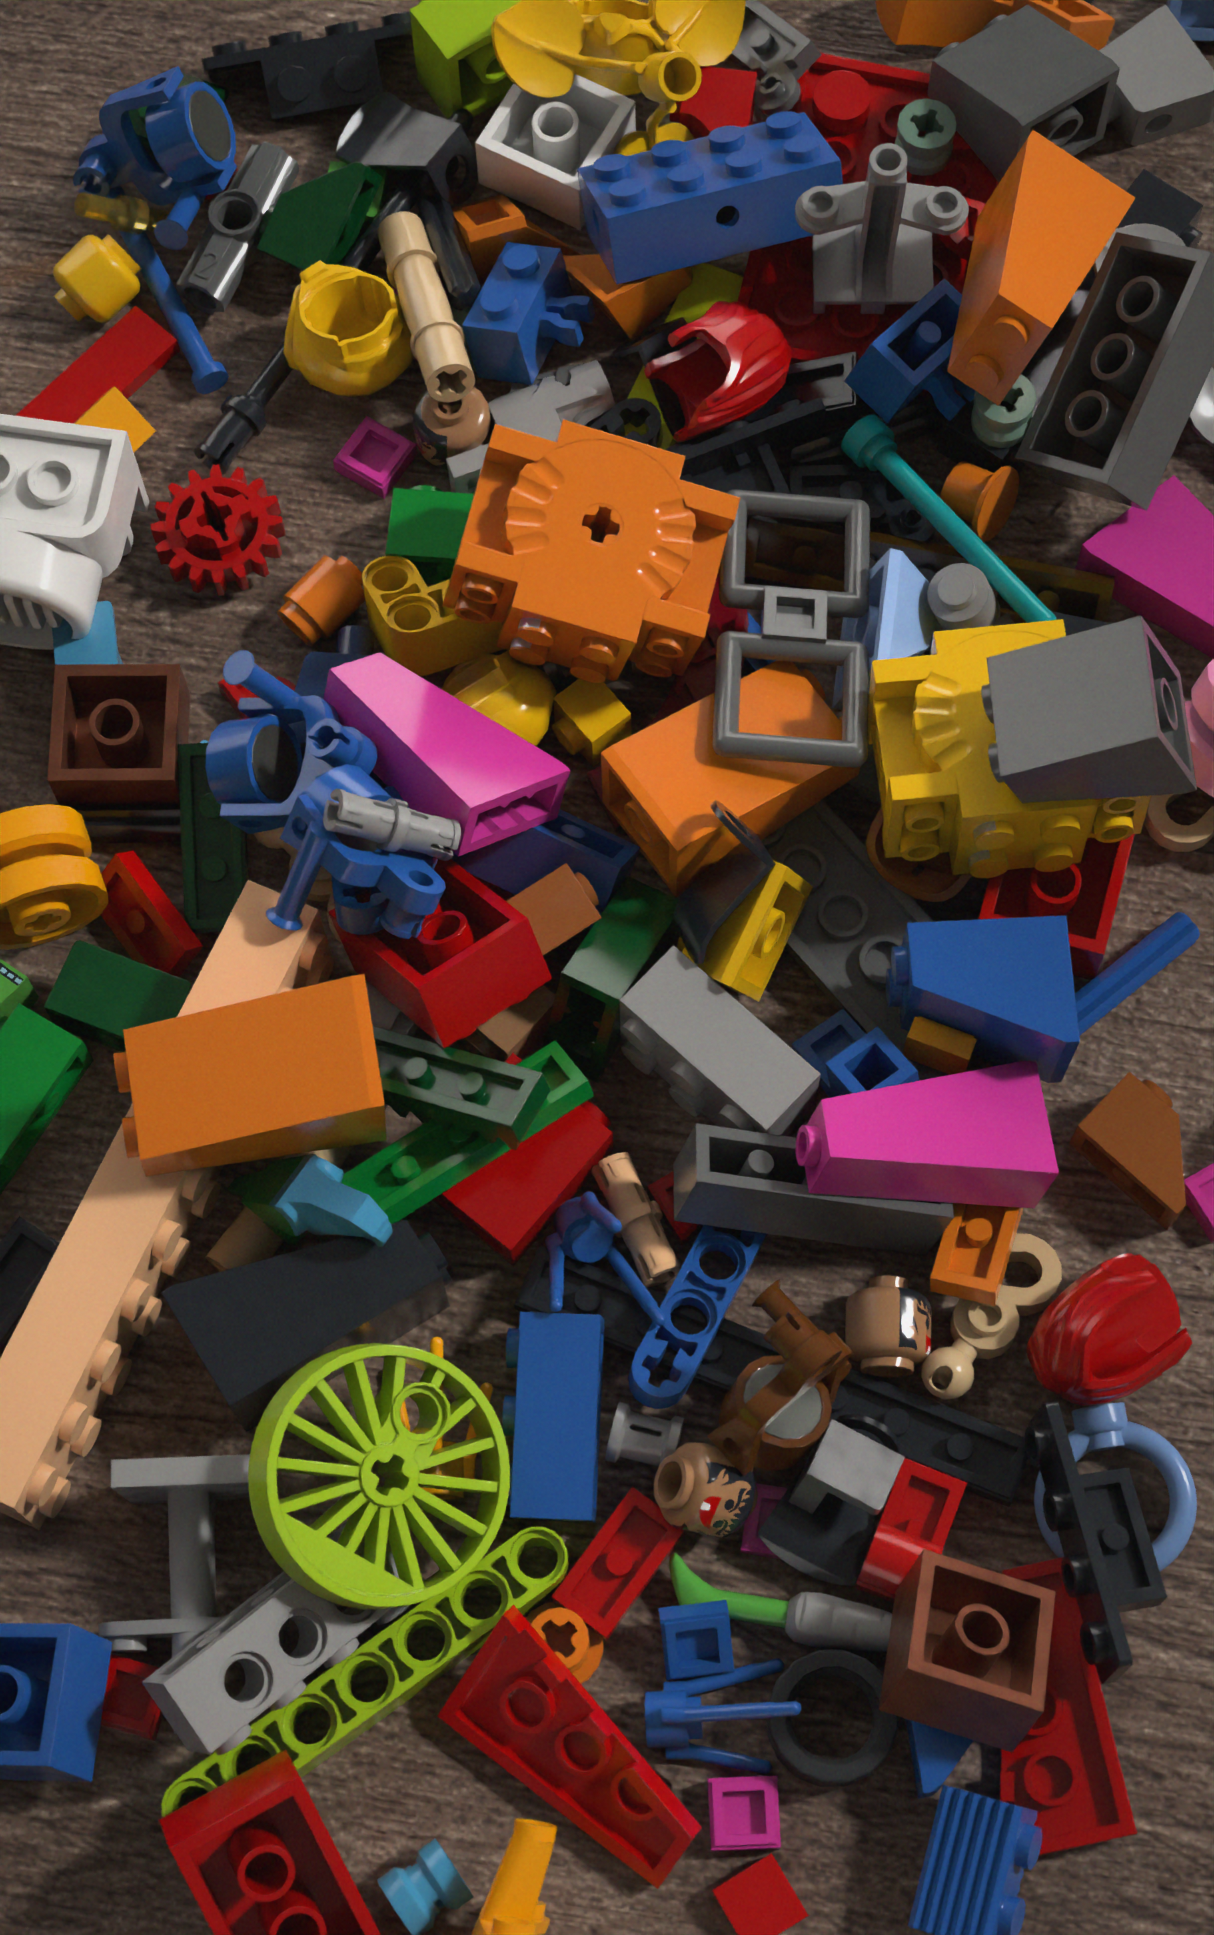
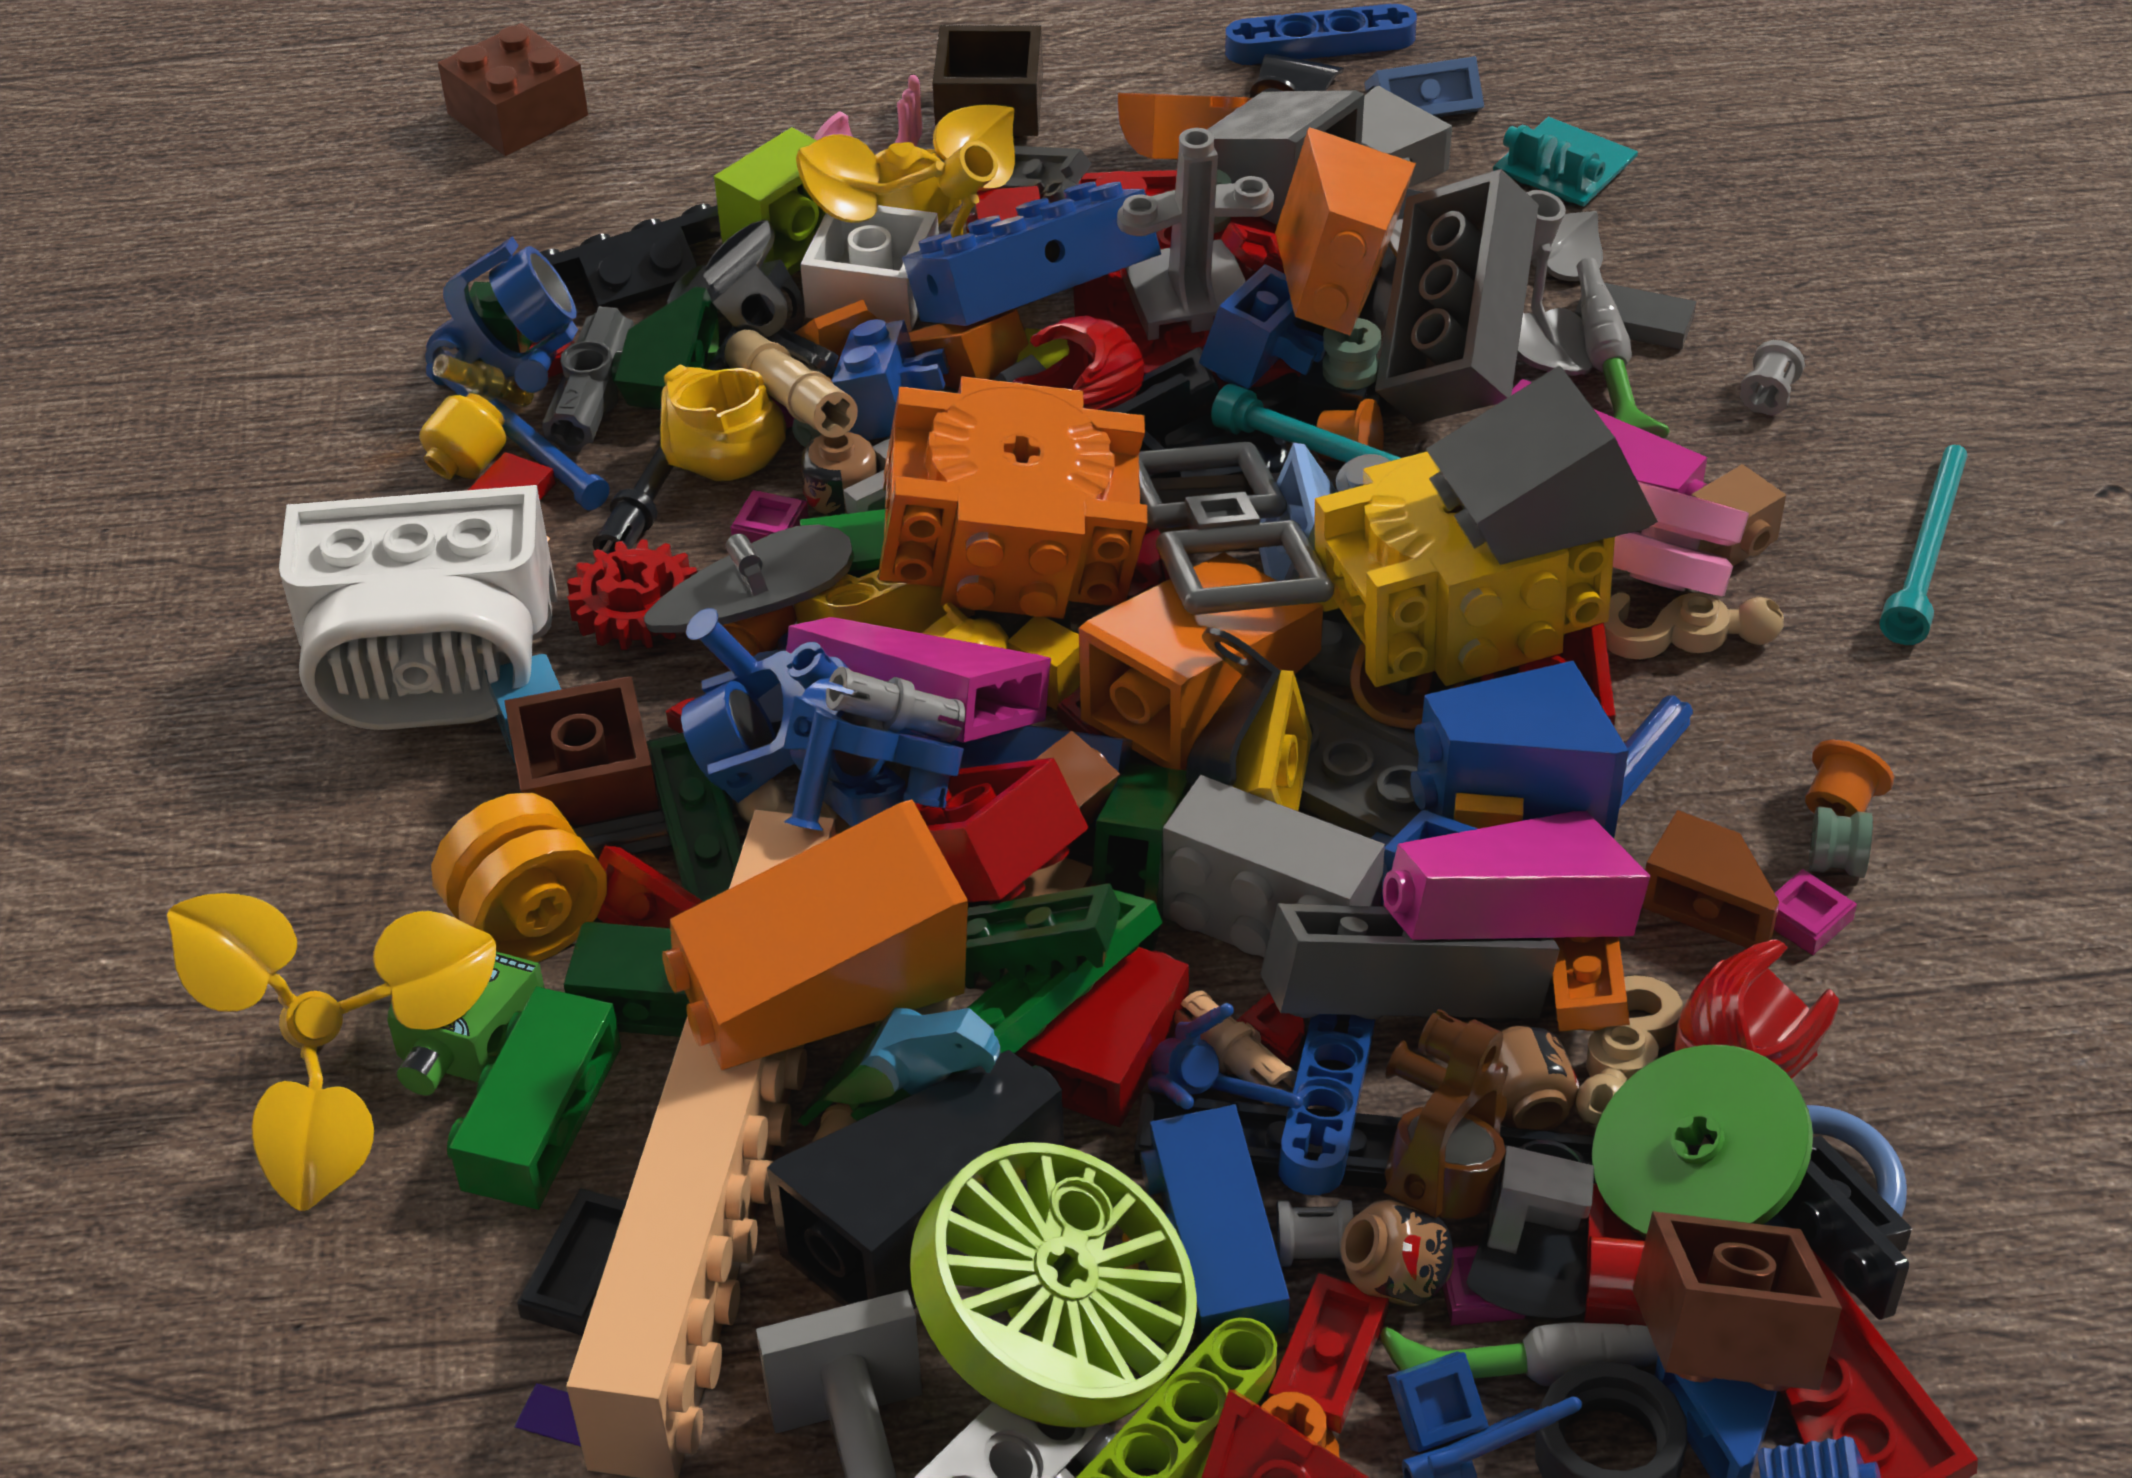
camera: 15 degrees left, 25 degrees down
(332, 560) = (757, 577): none -> dark grey shield
(411, 127) = (737, 273): none -> black piece
(1052, 1443) = (1716, 1090): none -> bright green piece

